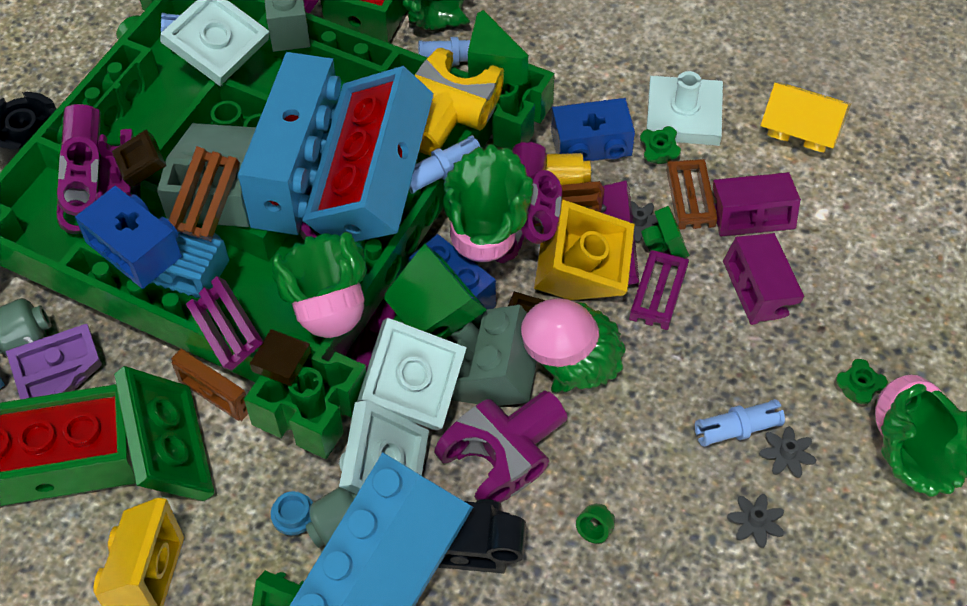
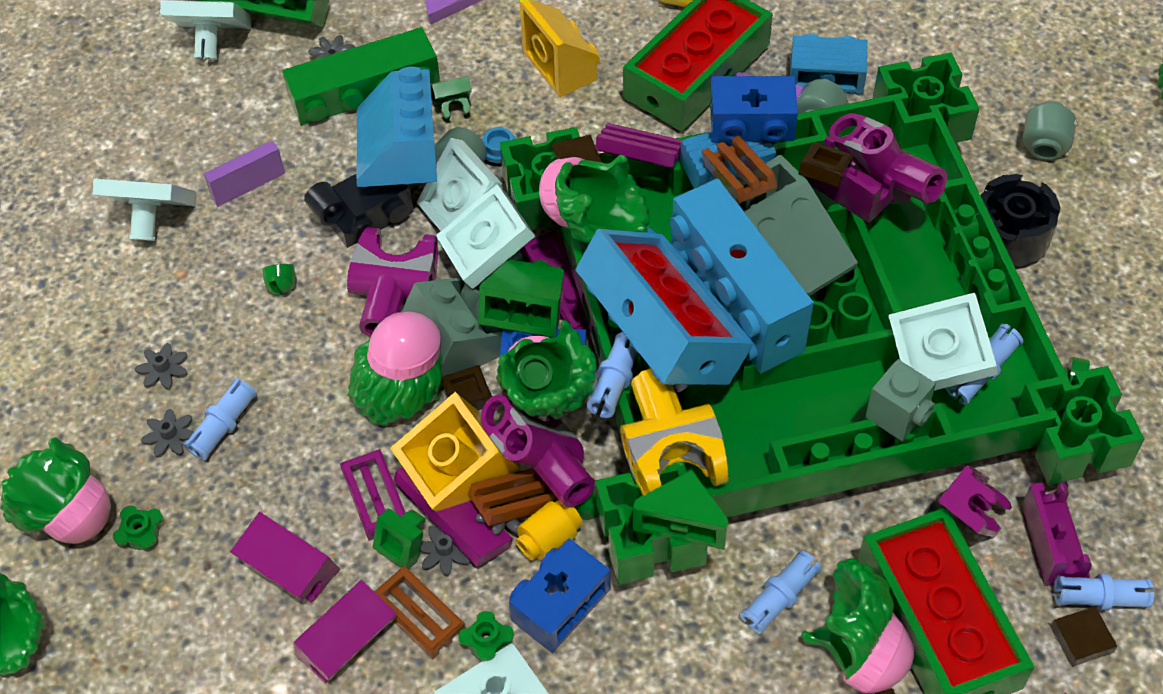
camera: 140 degrees right, 0 degrees up
(163, 435) = (625, 98): green tile -> none

